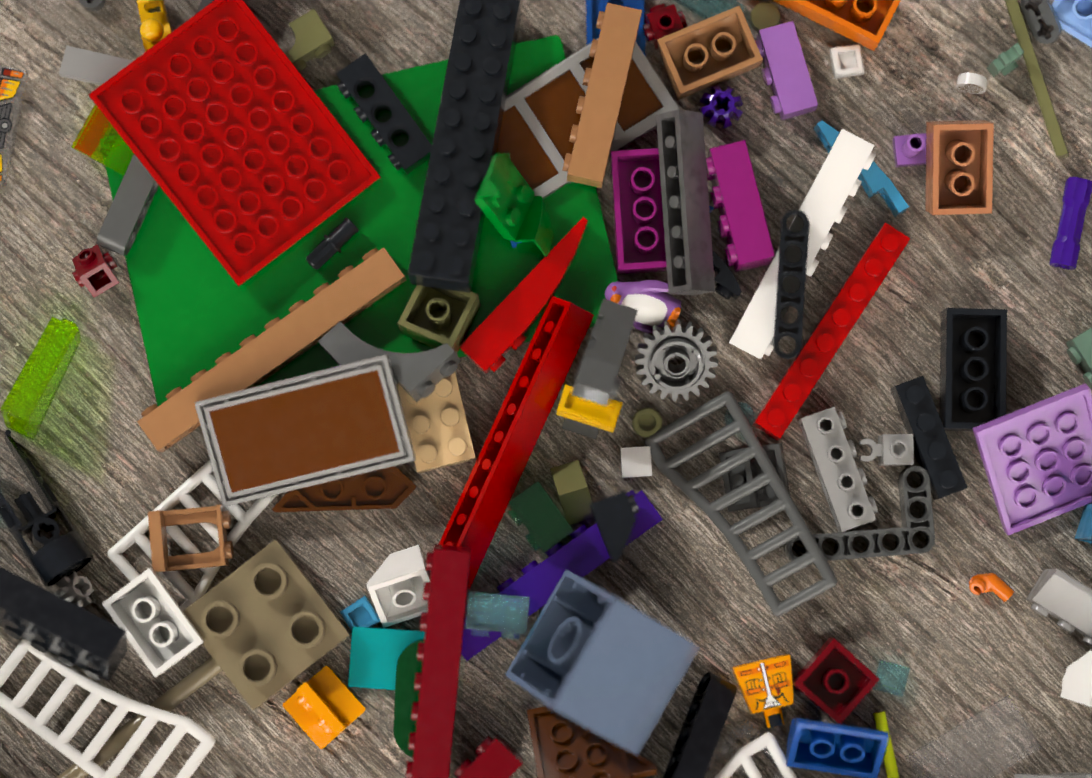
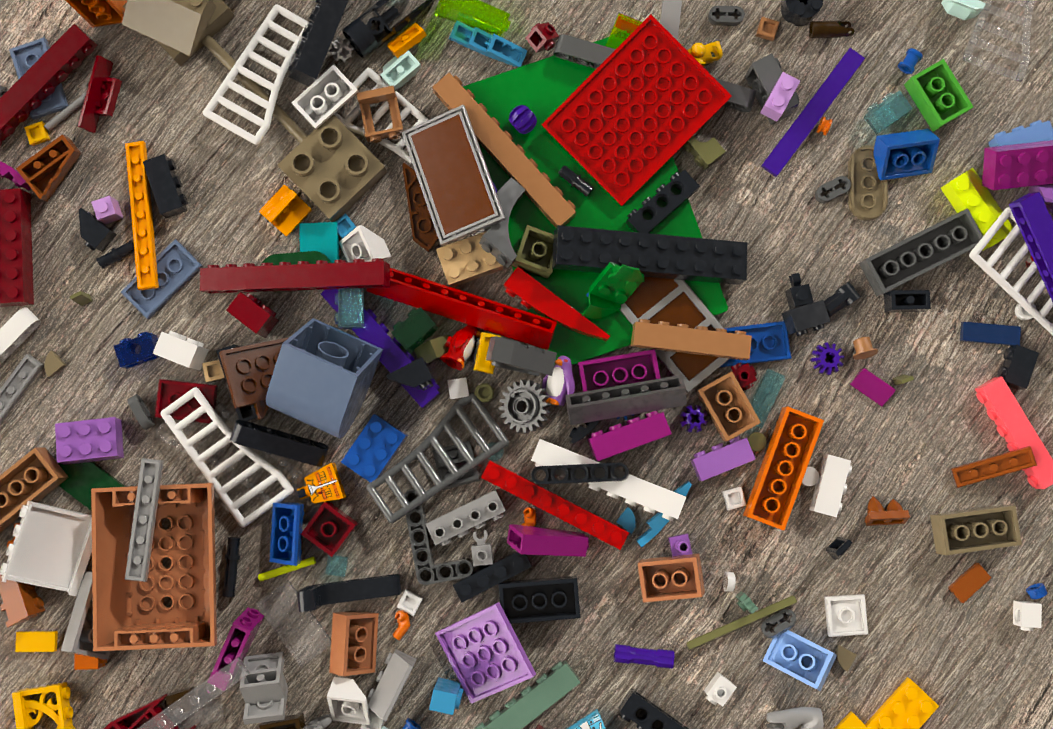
camera: 85 degrees right, 0 degrees up
(71, 486) = (406, 40): none -> light orange plate
(94, 358) = (487, 44): none -> dark azure slope
(117, 502) = (400, 70): none -> light aqua slope
(225, 315) = (522, 119): none -> dark purple piece
(573, 449) = (460, 347): none -> red animal
(718, 600) = (374, 448): none -> blue brick
(851, 373) = (529, 517): none -> orange arm
(864, 225) = (627, 520): none -> dark azure tile
(886, 349) = (547, 541): none -> magenta slope
(931, 658) = (316, 595): none -> black beam
(958, 570) = (409, 602): none -> white tile
(1012, 662) = (353, 643): none -> nougat slope

